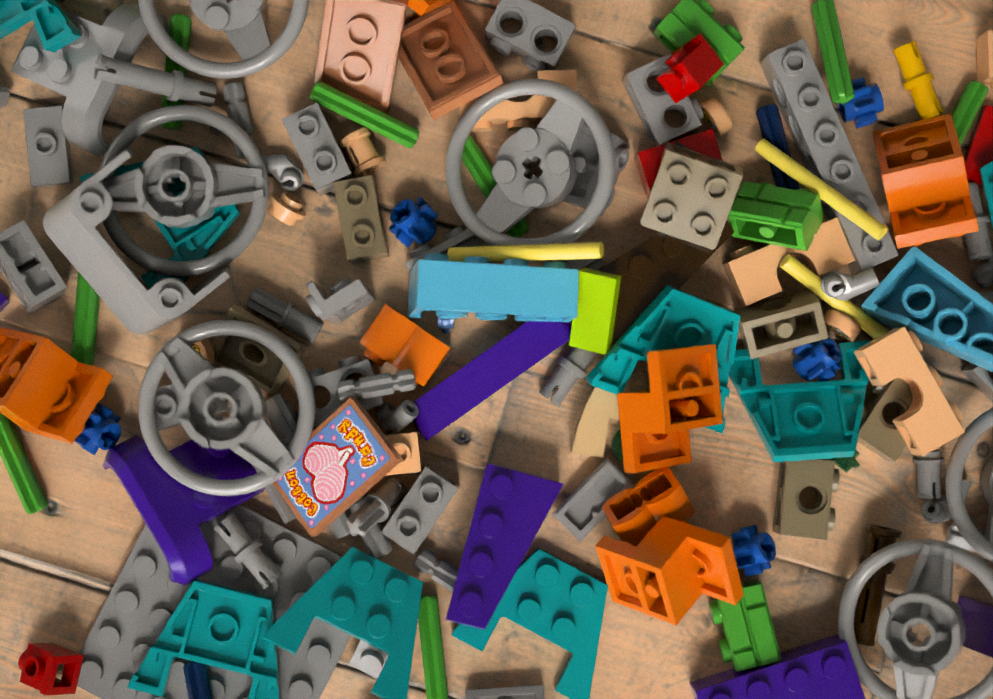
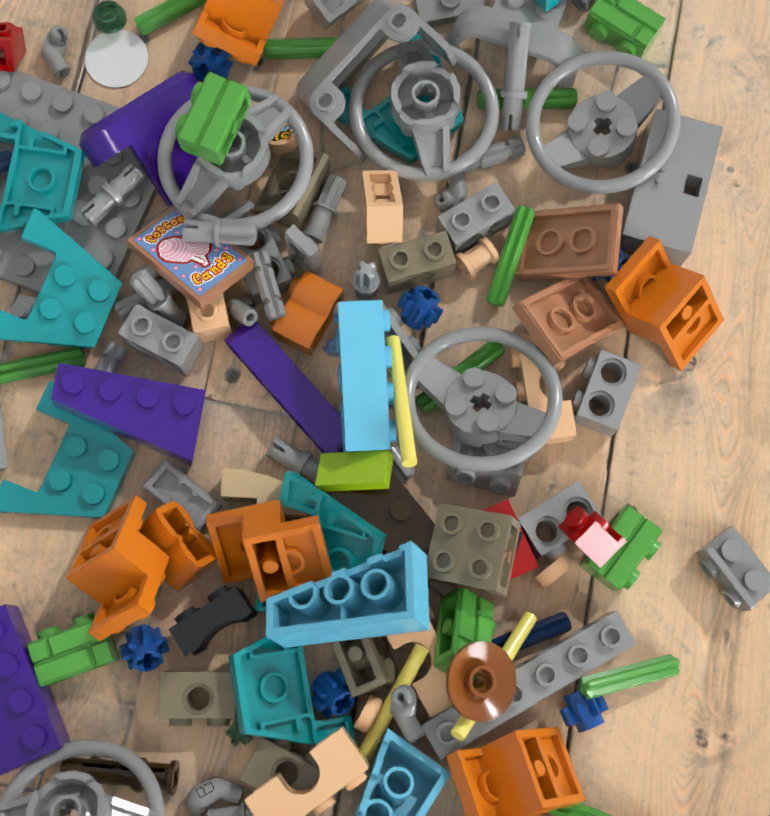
camera: 80 degrees right, 10 degrees down
(14, 546) = (109, 17): none -> clear green plate
(56, 609) = (54, 49): none -> light grey arm
(72, 538) = (116, 58): none -> white sticker
(194, 424) = (213, 118): none -> bright green brick
(286, 208) = (419, 199): light nougat plate -> none
(296, 250) = (382, 207): none -> light nougat brick
(317, 431) = (219, 232): none -> light grey axle
(338, 342) = (303, 250): none -> light grey plate
(345, 301) = (340, 247): light grey bracket -> none
(379, 277) = (366, 280): none -> light grey axle
(723, 460) = (199, 625): none -> black brick
(739, 314) = (363, 602): none -> medium azure wedge
(840, 192) = (495, 681): none -> dark orange dish
(899, 492) = (210, 791): none -> light grey arm
(918, 80) = (613, 766): yellow pin -> none

